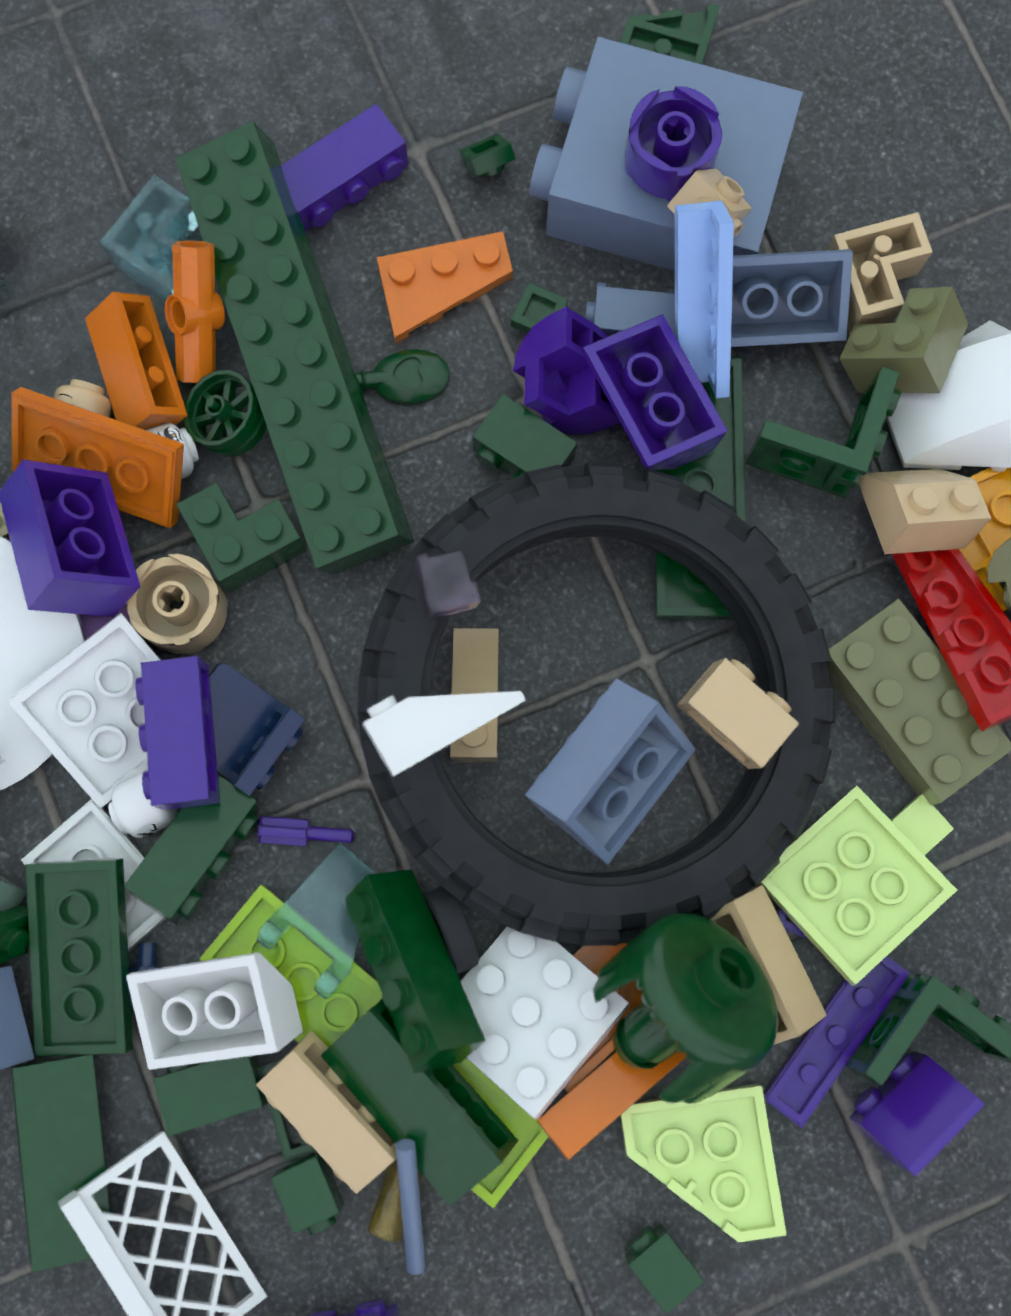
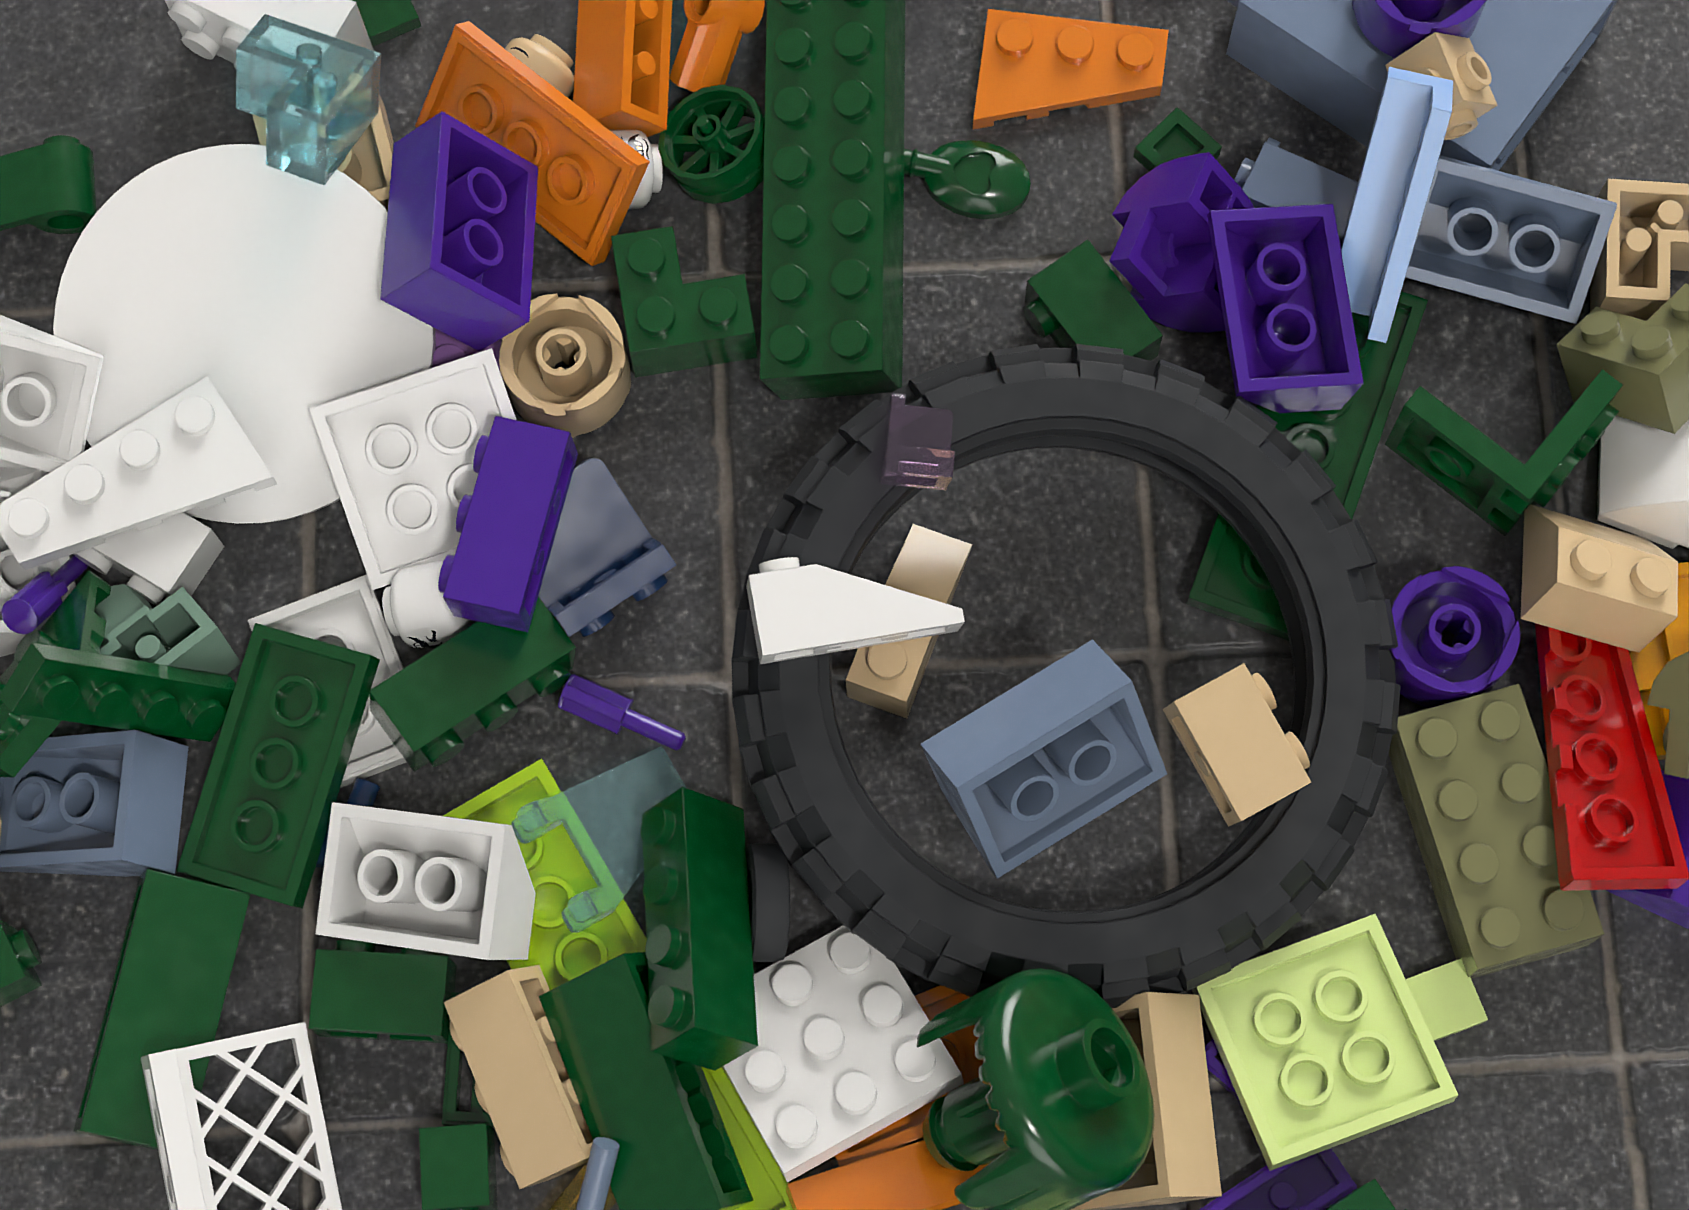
camera: 25 degrees right, 5 degrees down
(857, 567) = (1483, 643): none -> dark purple brick

